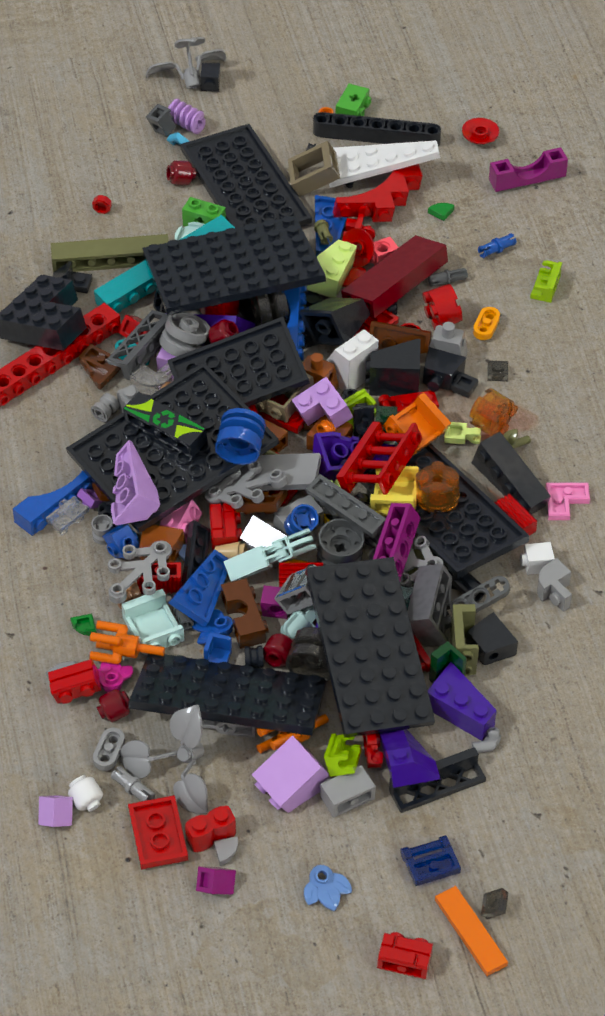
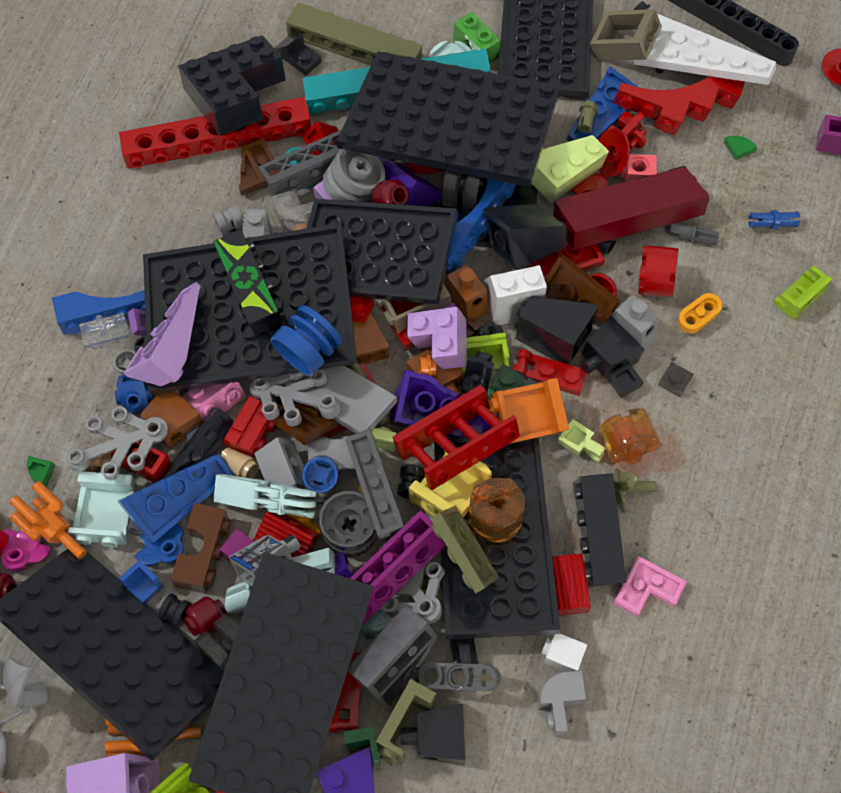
camera: 30 degrees right, 15 degrees up
(437, 510) = (464, 549): none -> olive plate

